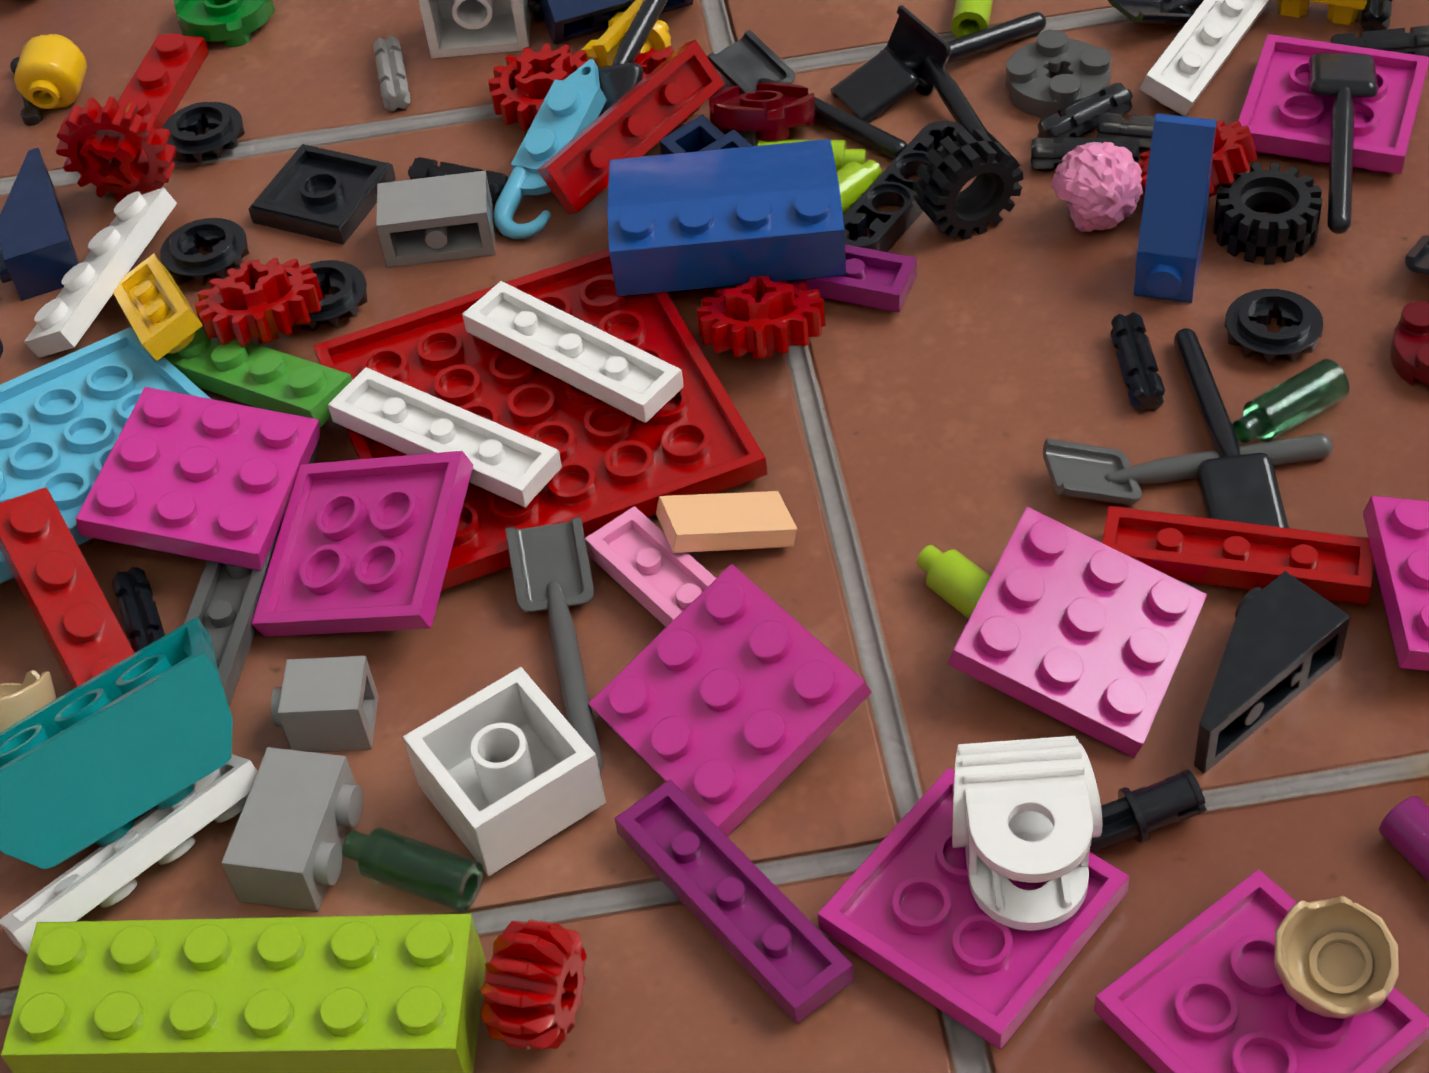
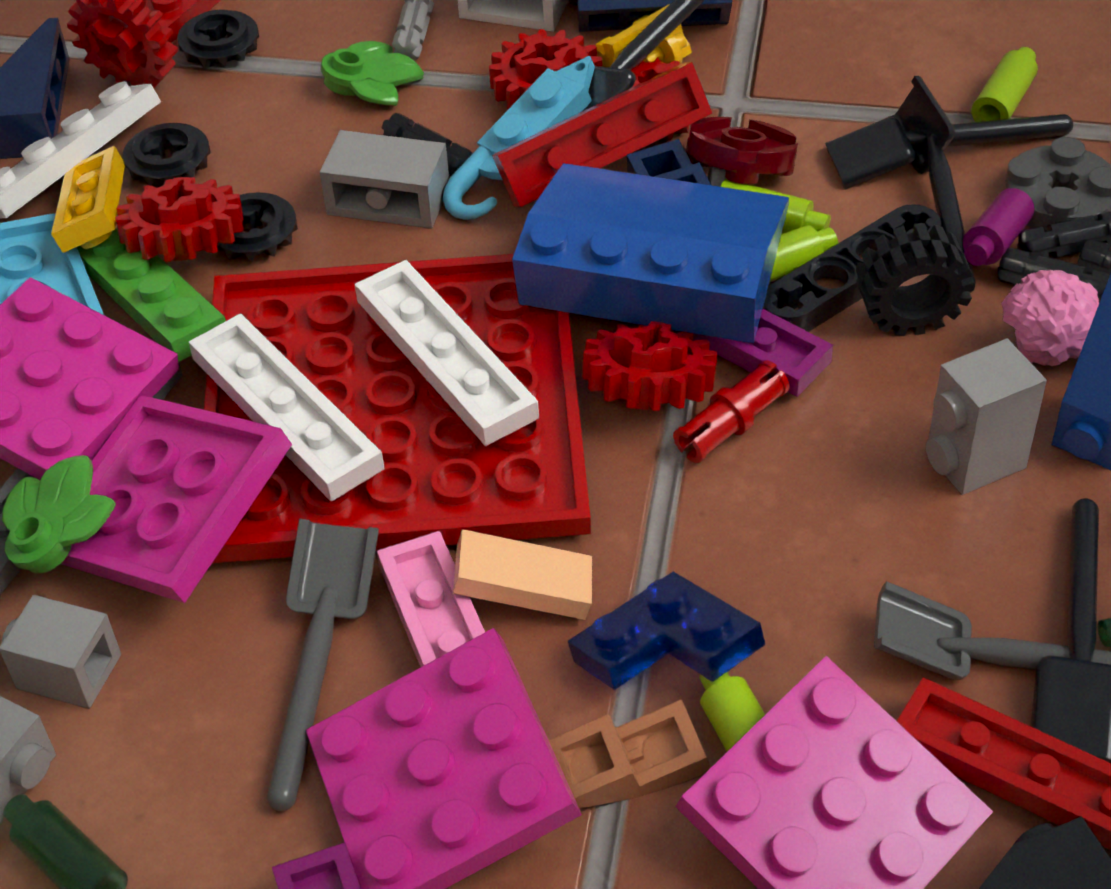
camera: 15 degrees right, 0 degrees up
(268, 588) = (53, 514): none -> bright green plate
(321, 194) = (296, 125): black tile -> none
(370, 127) = (369, 71): none -> bright green plate
(505, 770) = (183, 781): white brick -> none
(753, 62) = (760, 99): black piece -> none
(848, 338) = (731, 411): none -> red pin
(872, 522) = (663, 620): none -> clear blue plate
(892, 638) = (631, 759): none -> nougat slope
(1019, 120) = (998, 227): none -> magenta cylinder
(1077, 280) = (984, 416): none -> light grey brick
(1137, 362) = (1022, 521): black axle -> none

